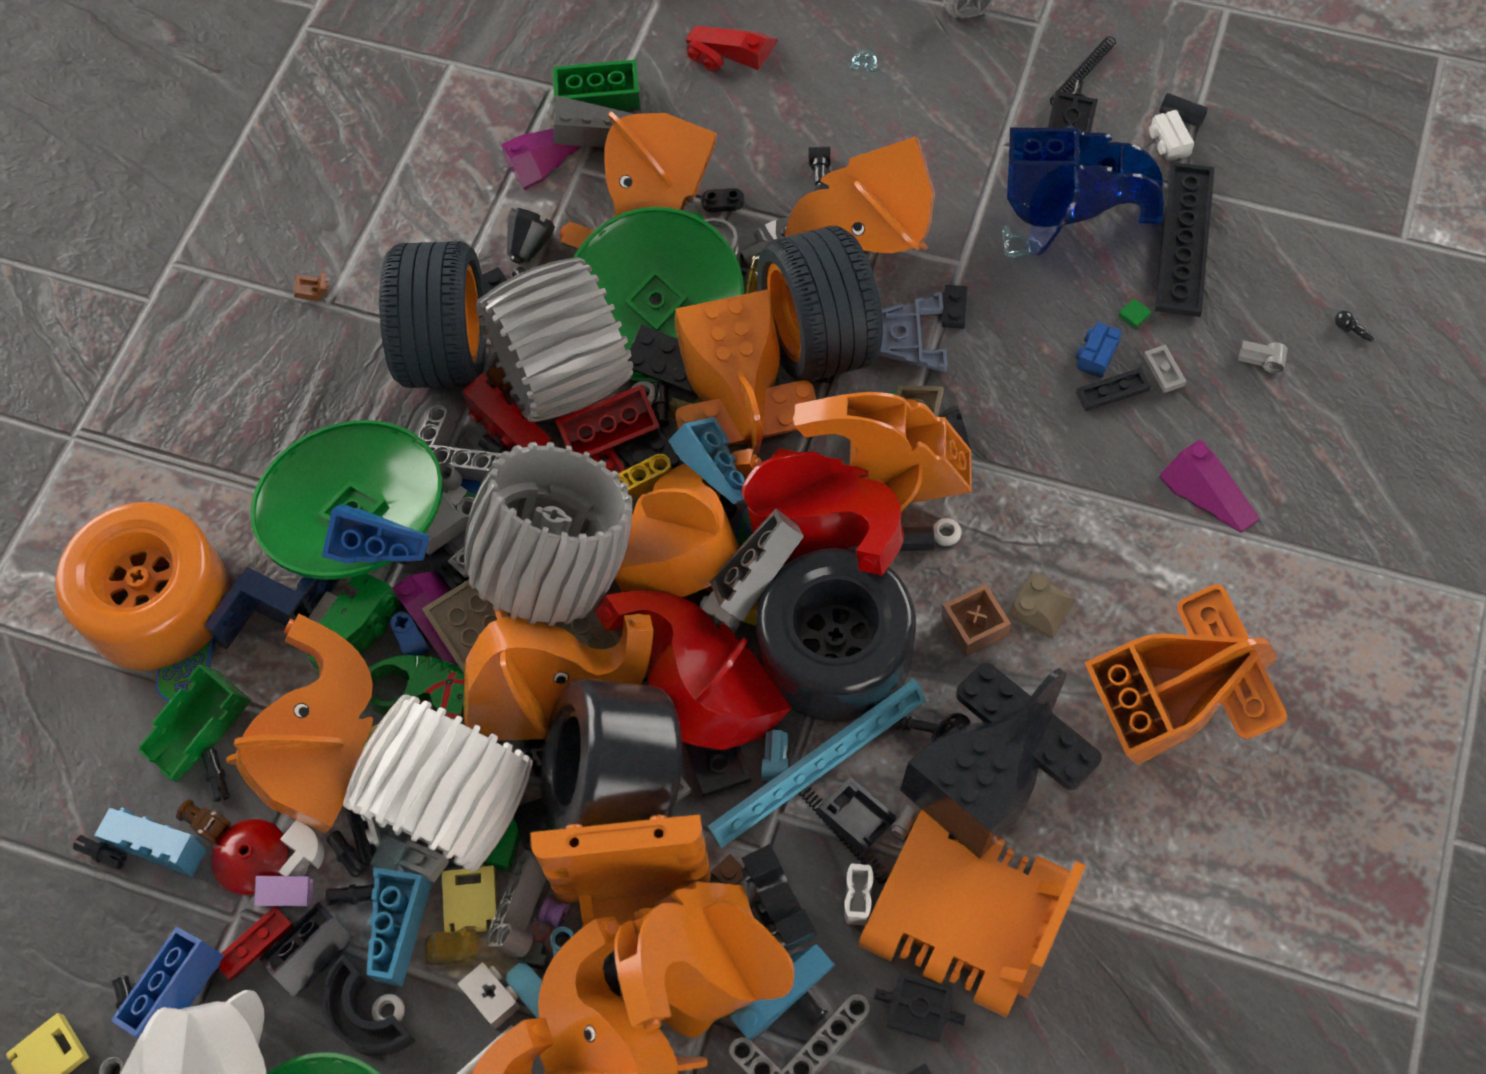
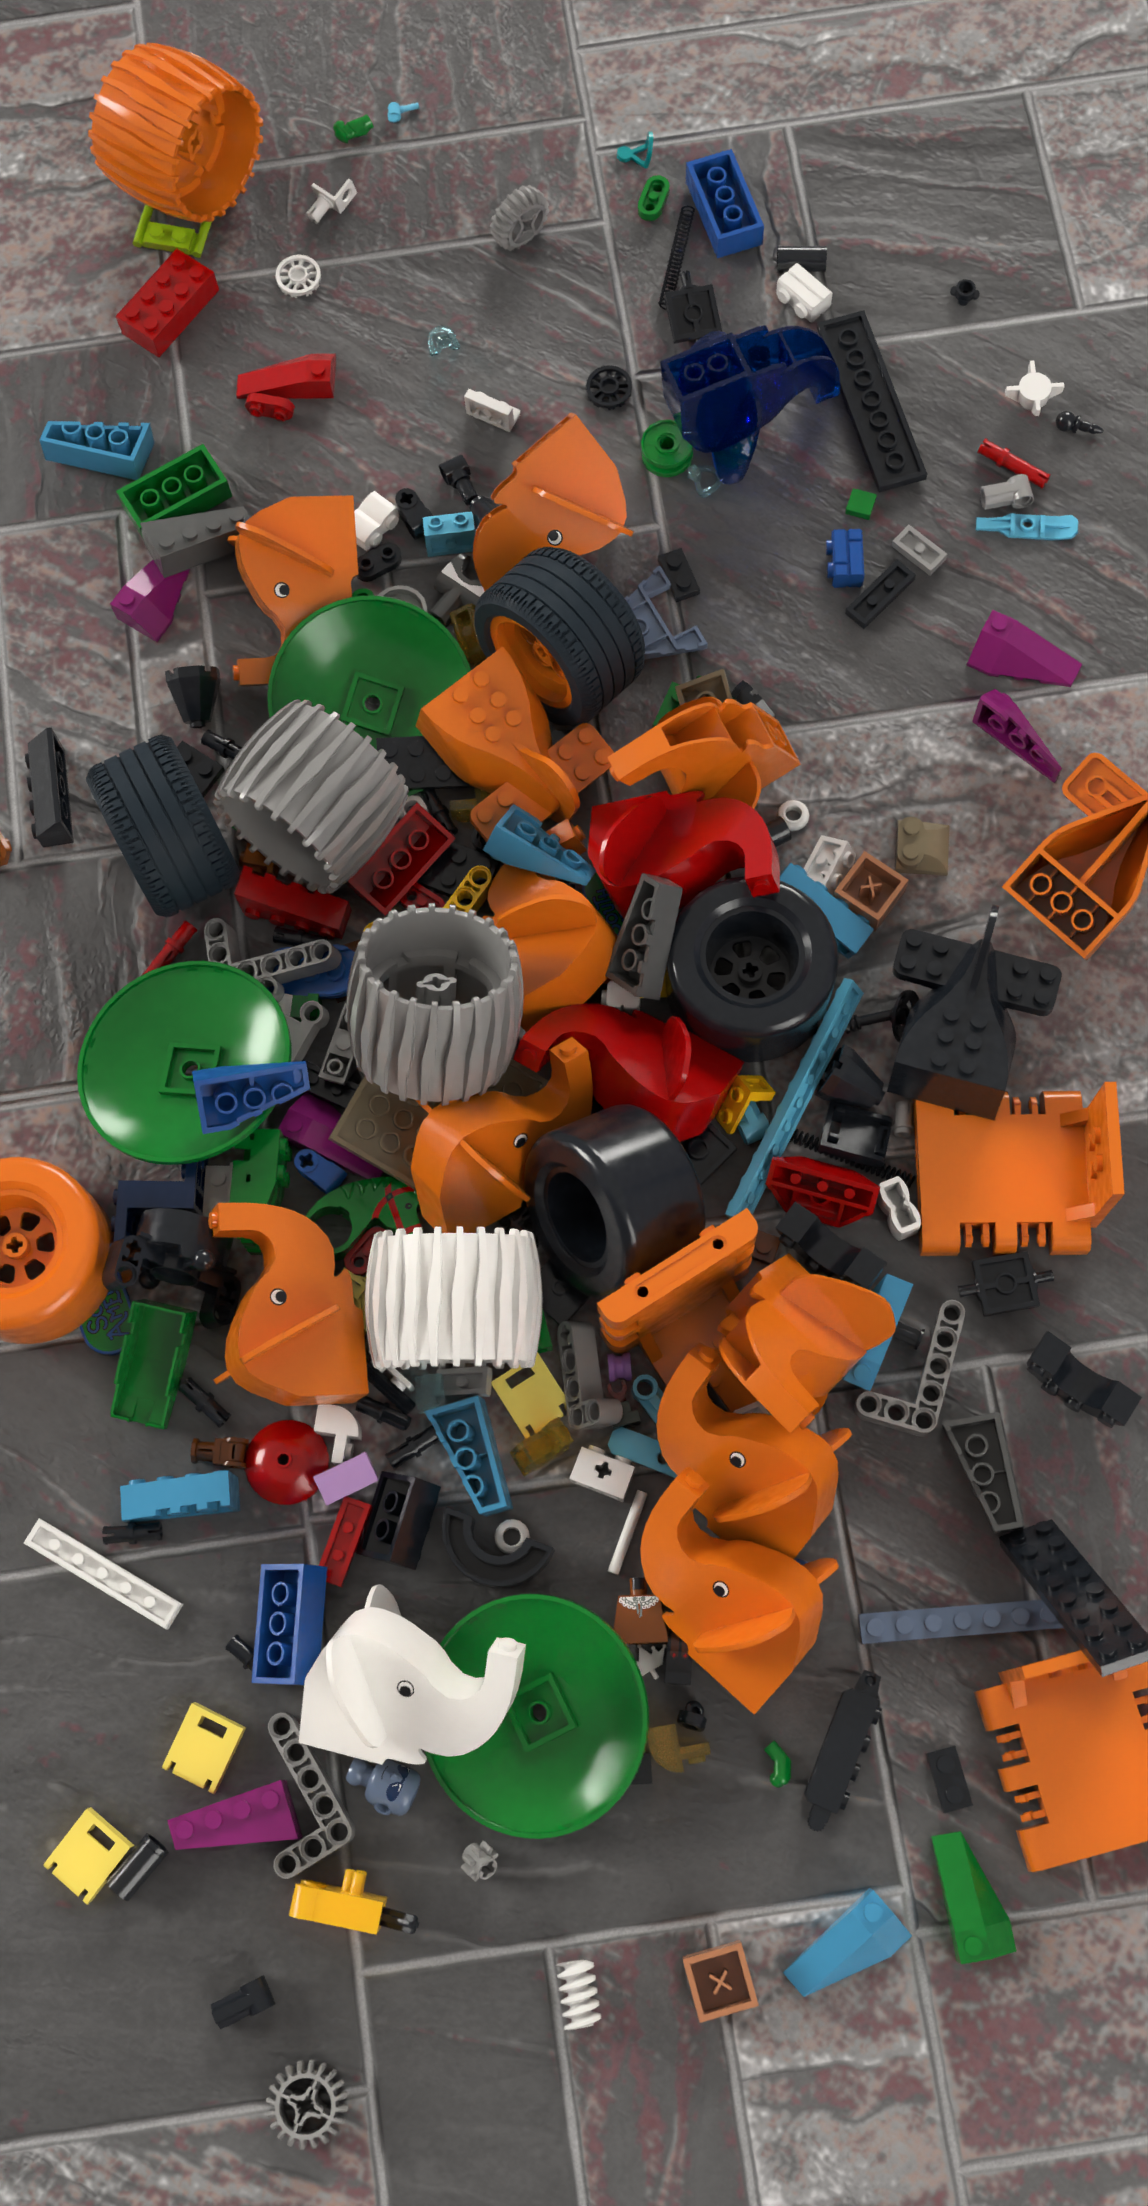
camera: 25 degrees left, 10 degrees up
(60, 874) = (103, 1574): none -> white tile
(254, 642) = (180, 1251): none -> black piece
(366, 281) = (49, 790): none -> black slope
(404, 413) = (173, 946): none -> red pin
(562, 35) = (99, 447): none -> dark azure wedge
(733, 167) = (374, 519): none -> white brick
(769, 174) = (412, 511): none -> black piece
(781, 732) = (744, 1089): none -> yellow bracket
(782, 197) = (449, 533): none -> medium azure bracket
(801, 846) = (826, 1190): none -> red wedge
(872, 123) = (491, 410): none -> white bracket
(875, 768) = (850, 1081): none -> black cone
(932, 625) = (849, 928): none -> dark azure wedge
(953, 582) = (830, 862): none -> white bracket
(976, 145) = (609, 387): none -> black wheel
(985, 209) = (661, 461): none -> green wheel
(1087, 21) = (651, 199): none -> green plate
(1141, 45) = (724, 203): none -> blue brick
(1166, 536) = (1007, 724): none -> magenta wedge
(1277, 329) = (1013, 463): none -> red pin
(1280, 394) = (1042, 526): none -> medium azure piece
(1308, 187) = (965, 286): none -> black plate
(1327, 283) = (1033, 390): none -> white piece

